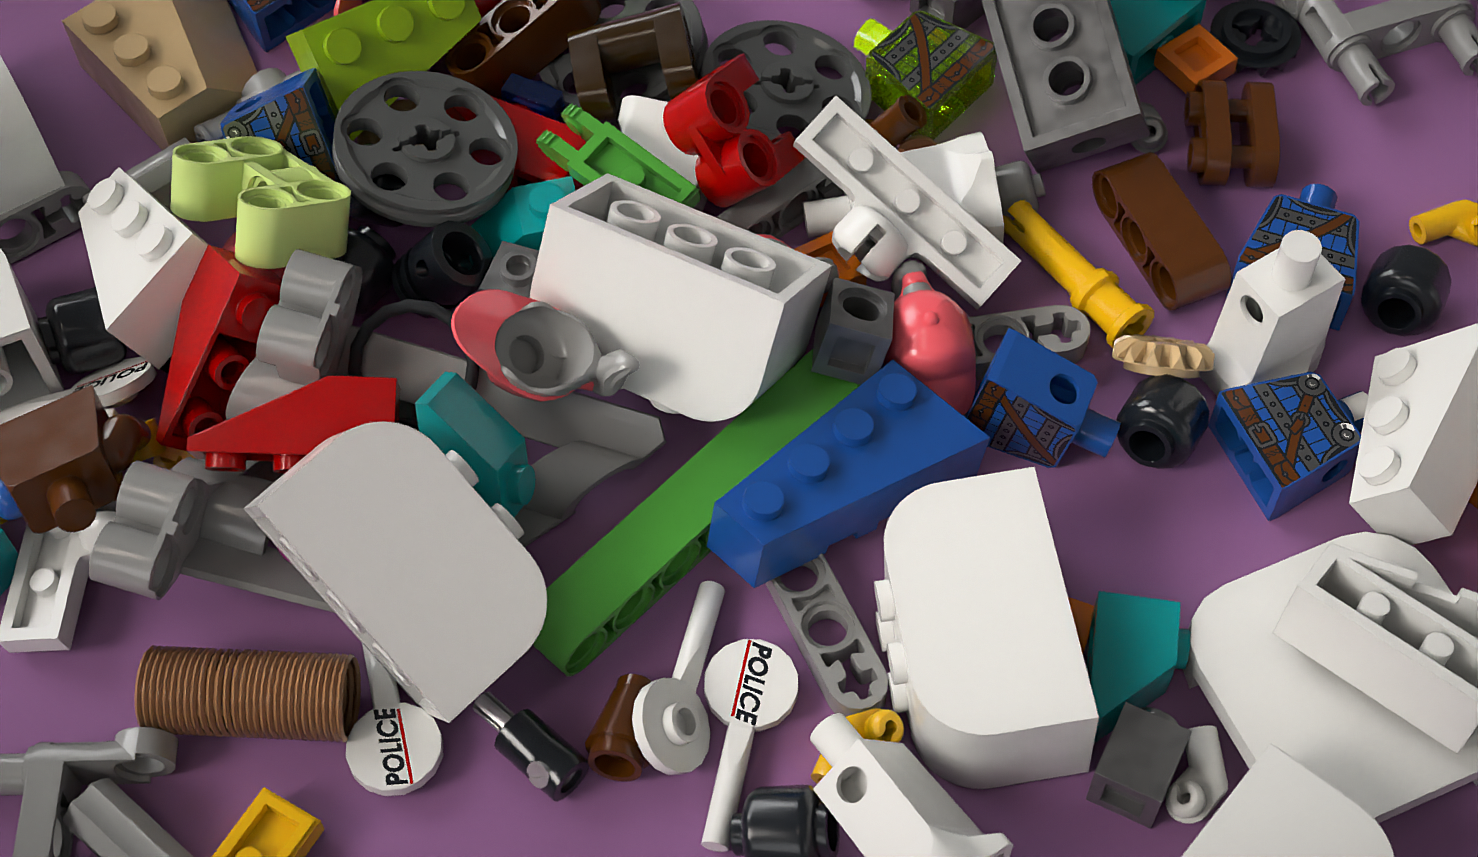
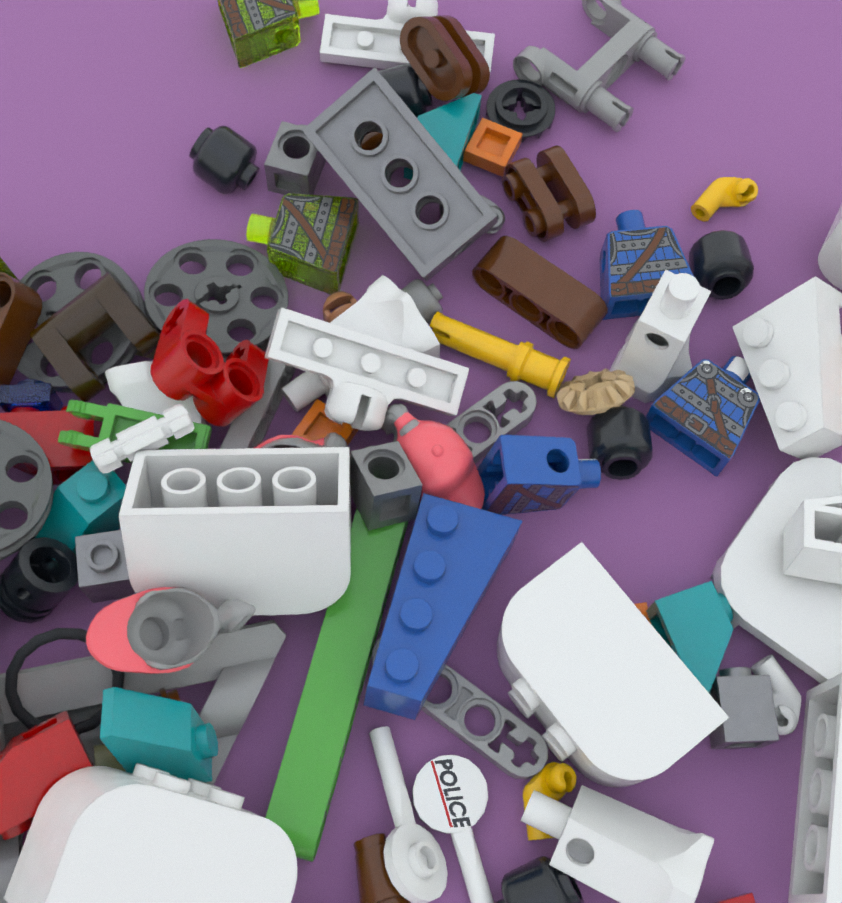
camera: 35 degrees left, 10 degrees up
(625, 163) = (142, 436): none -> white axle
(900, 120) = (315, 294): reddish brown pin -> none

